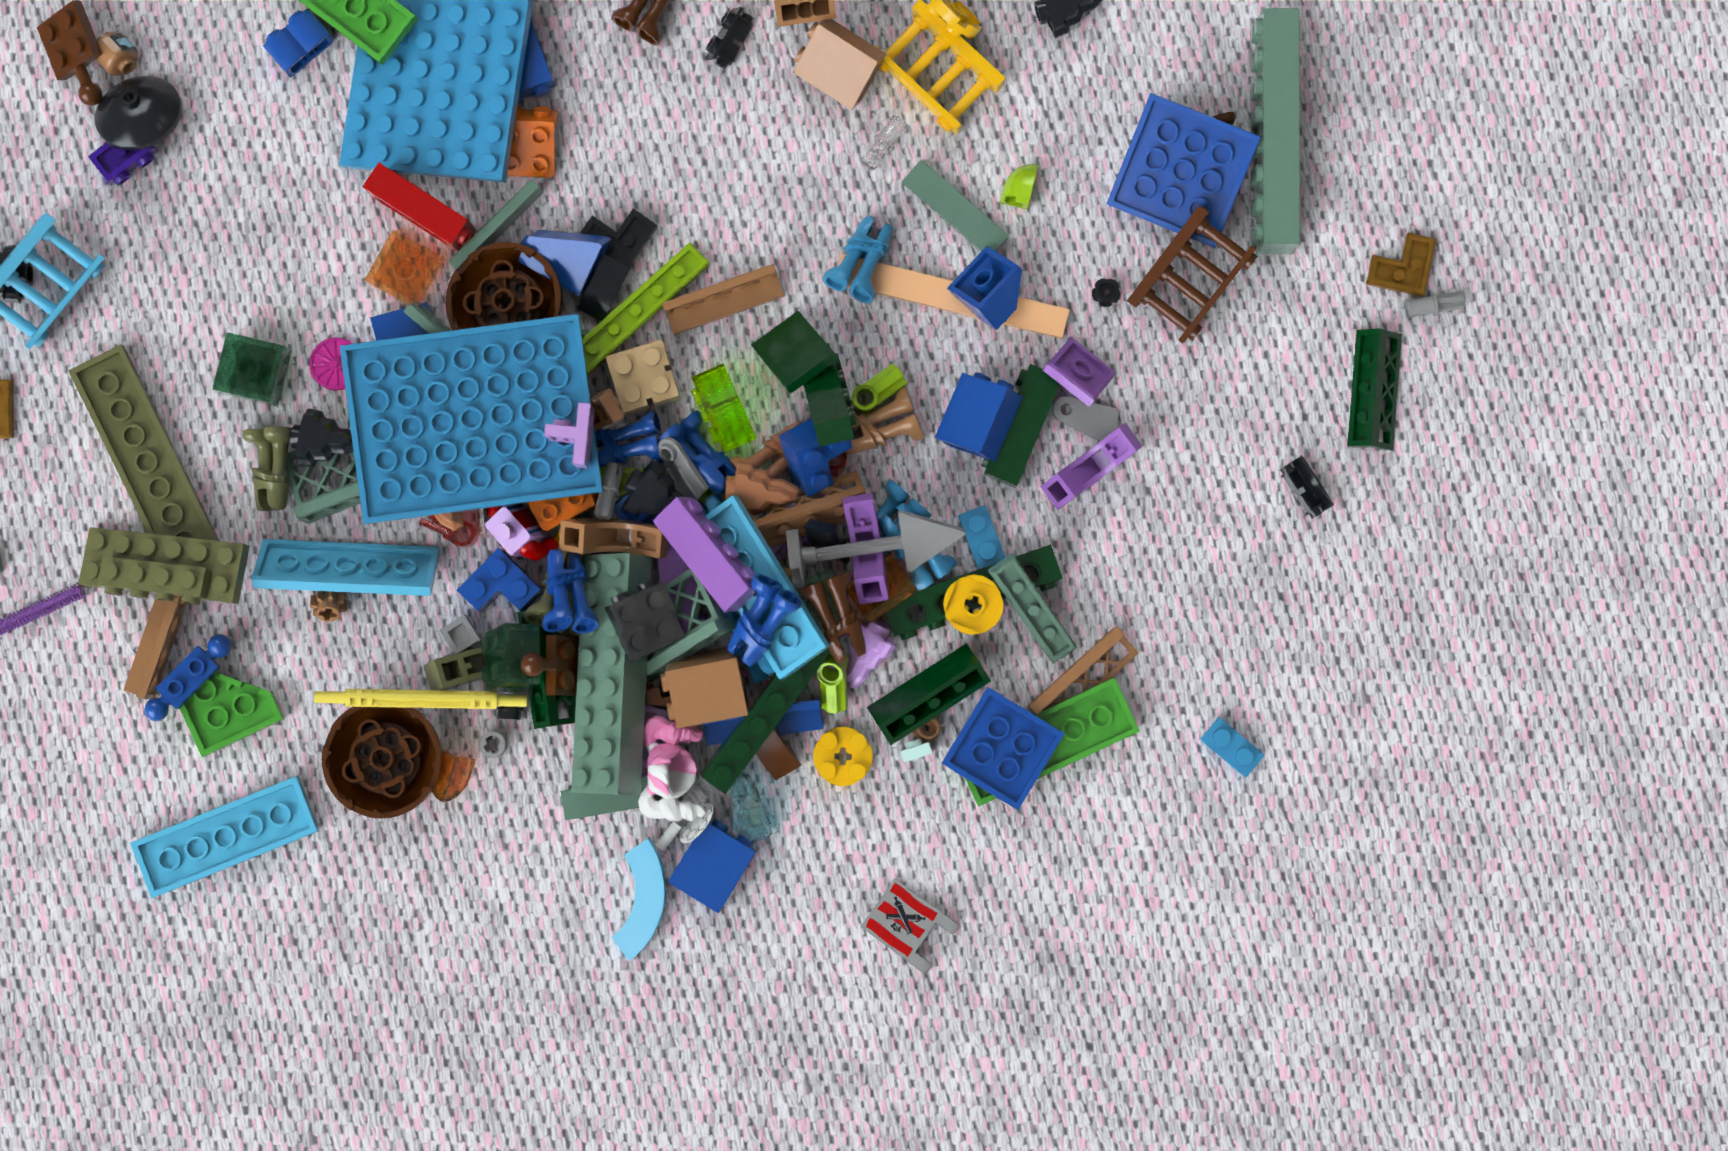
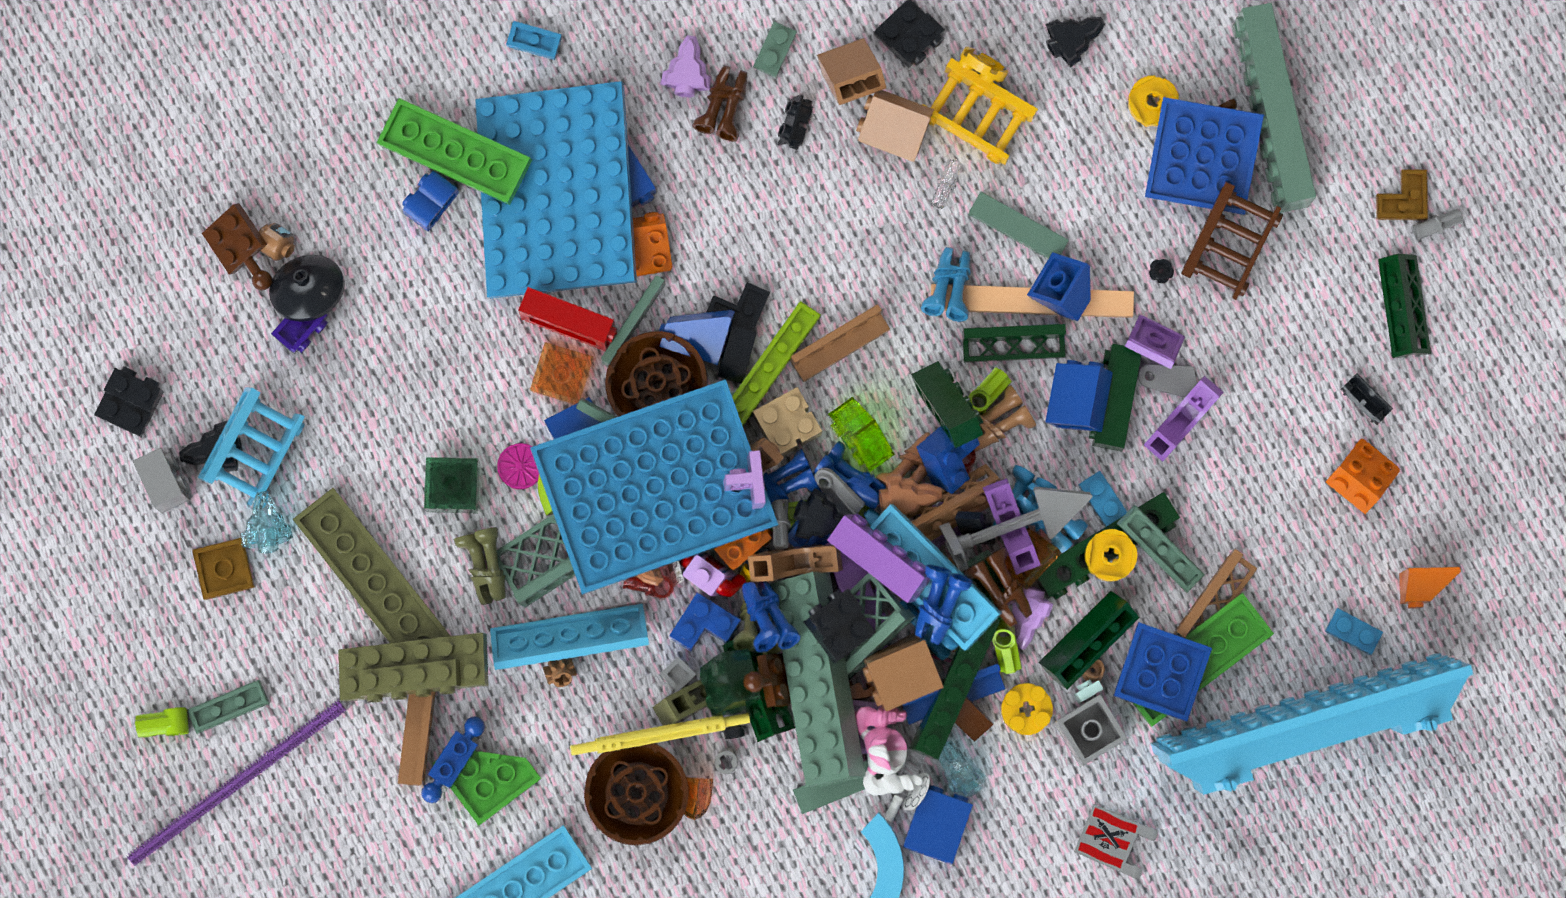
camera: 25 degrees left, 5 degrees down
(34, 372) = (265, 526): none -> clear light blue rock
(319, 439) = (524, 532): black rock -> none
(794, 352) = (912, 374): dark green tile -> none
(907, 797) = (1090, 730): none -> light grey brick
(923, 329) = (1018, 333): none -> dark green fence
(1019, 186) = (1068, 197): lime brick -> none
(1125, 89) = (1139, 94): none -> yellow plate
(1268, 837) = (1399, 699): none -> medium azure piece
(1283, 573) = (1363, 476): none -> orange bracket
(1323, 712) = (1423, 584): none -> orange slope

